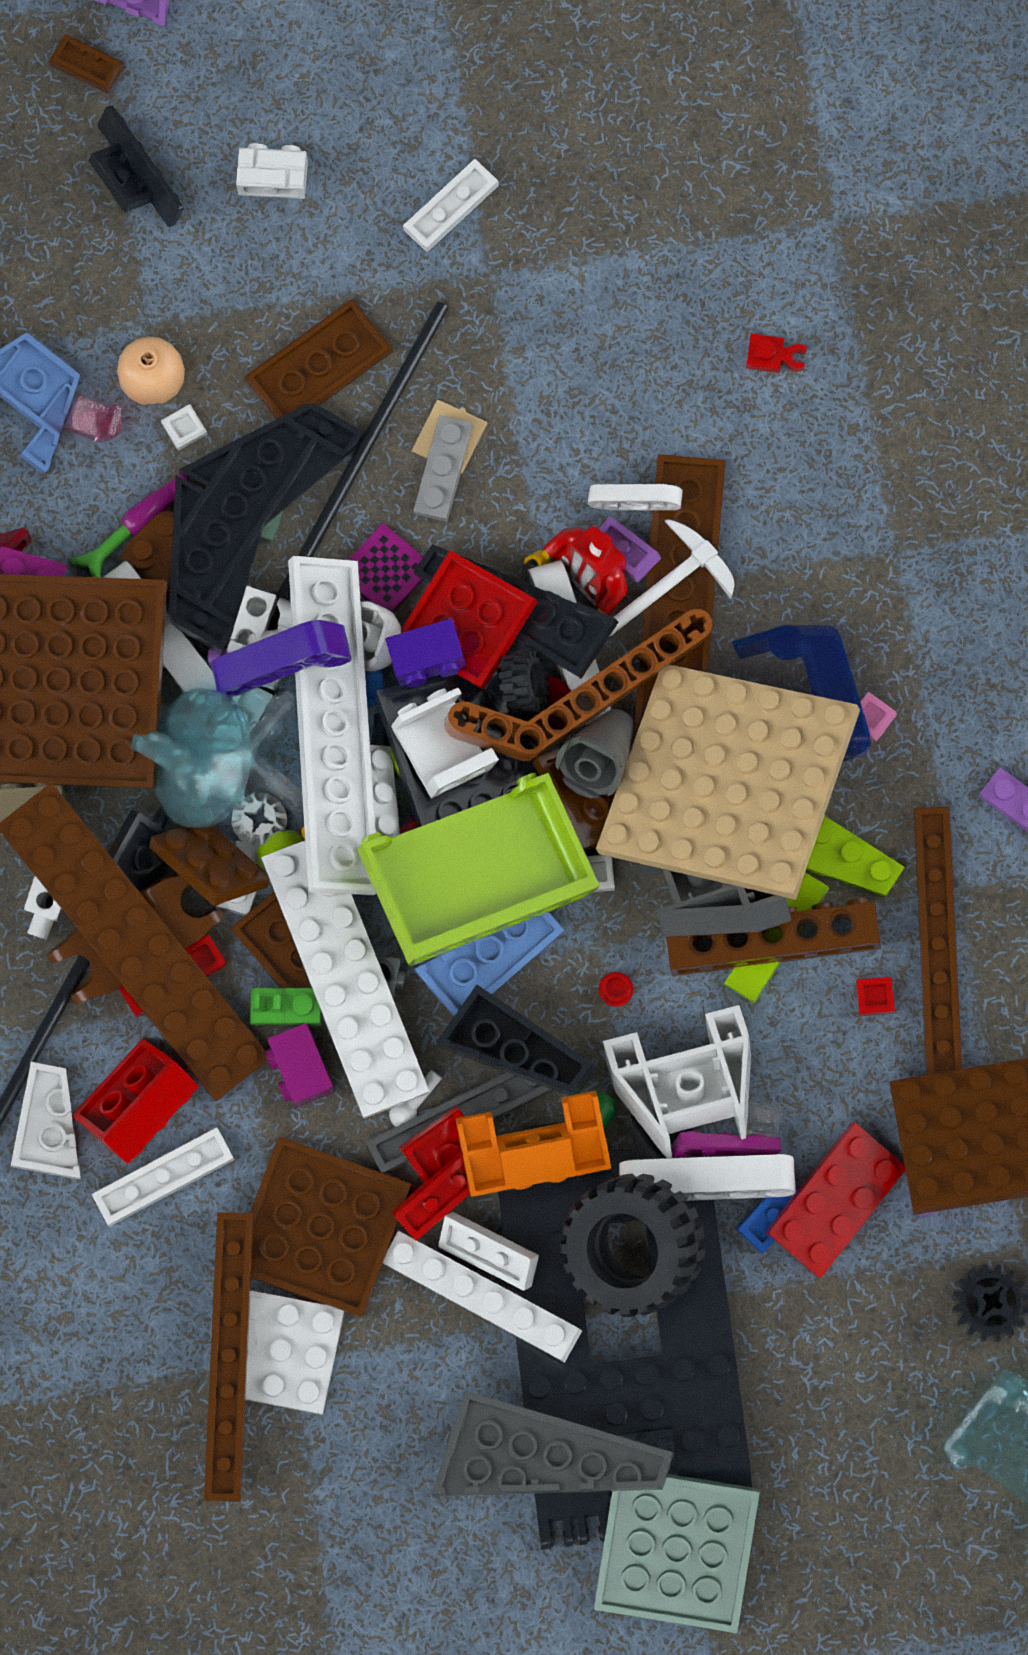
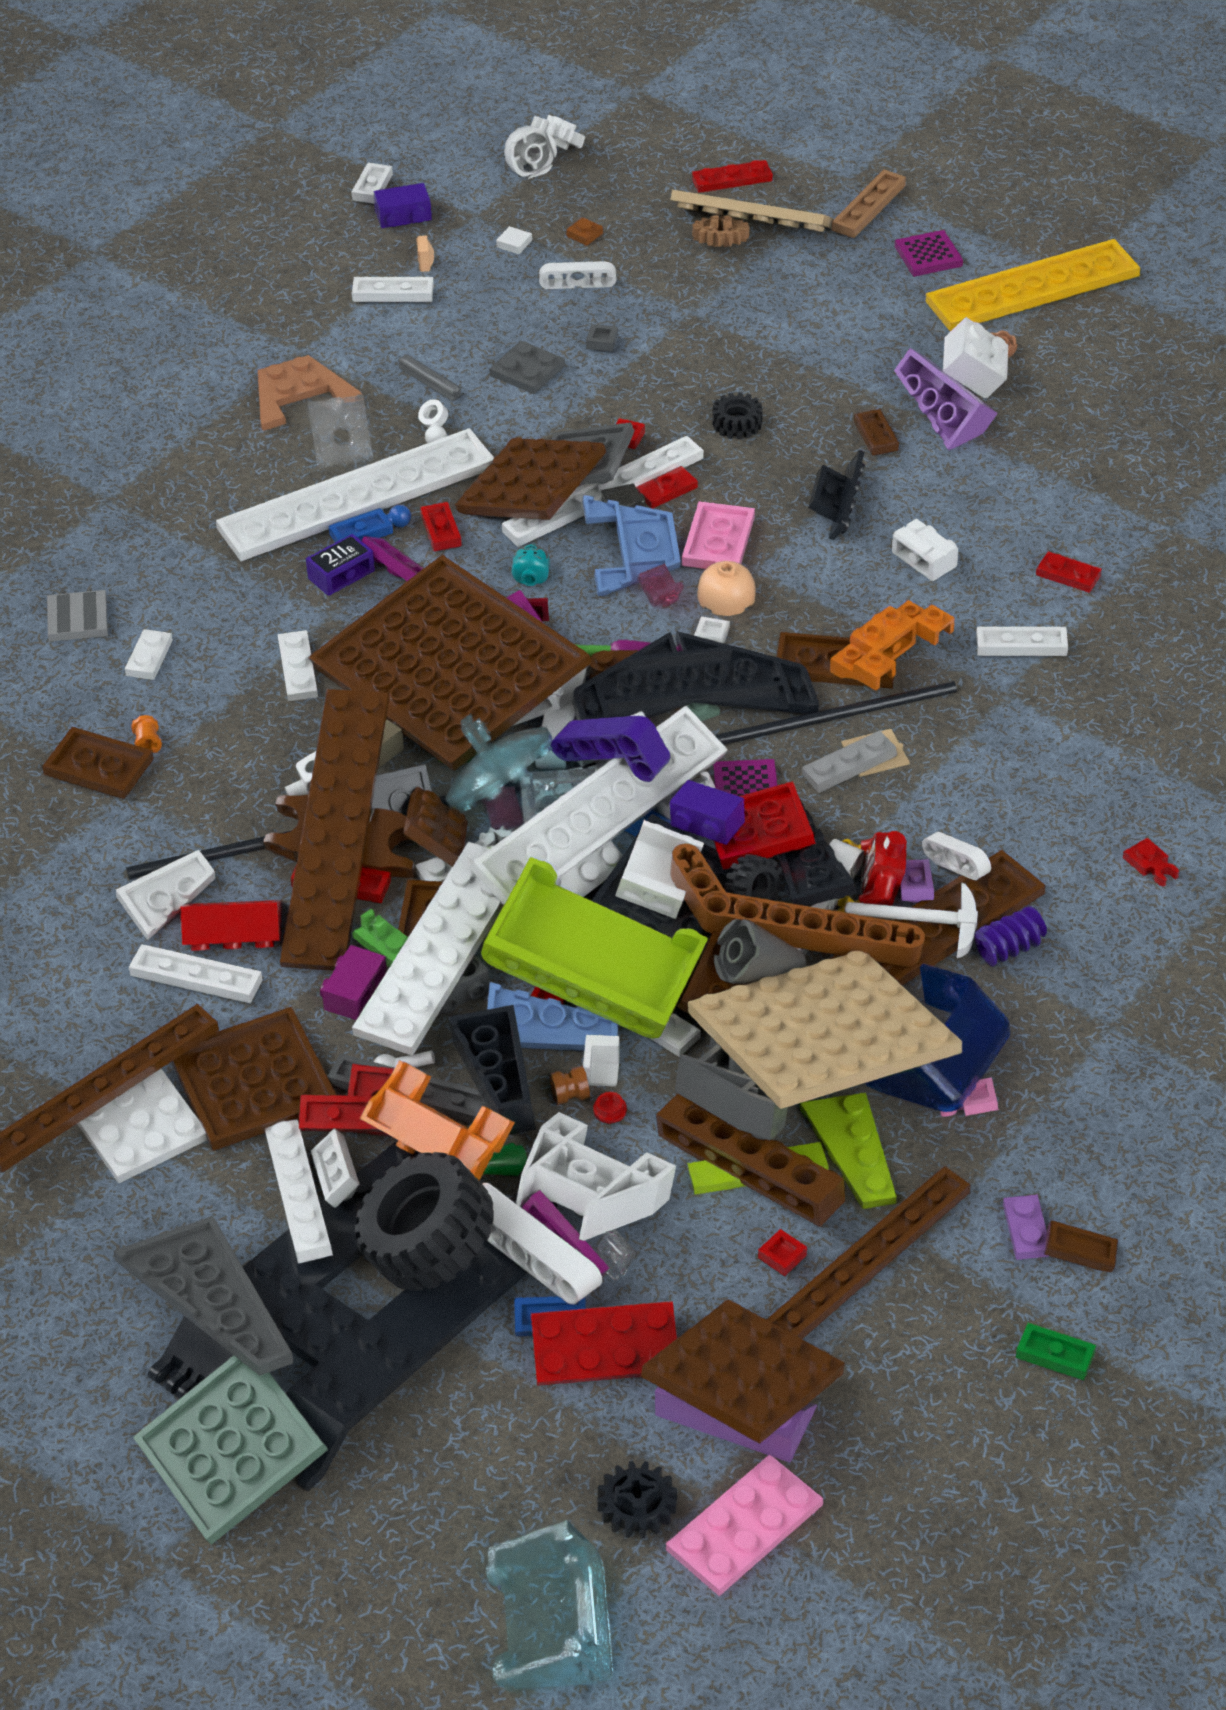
camera: 45 degrees right, 30 degrees down
(80, 315) = (717, 534): none -> bright pink plate
(347, 327) = (885, 639): none -> orange bracket
(409, 86) = (1068, 571): none -> red plate
(566, 954) = (602, 1060): none -> white panel
(568, 1000) = (569, 1085): none -> dark orange wheel
(747, 537) = (1010, 935): none -> dark purple piece

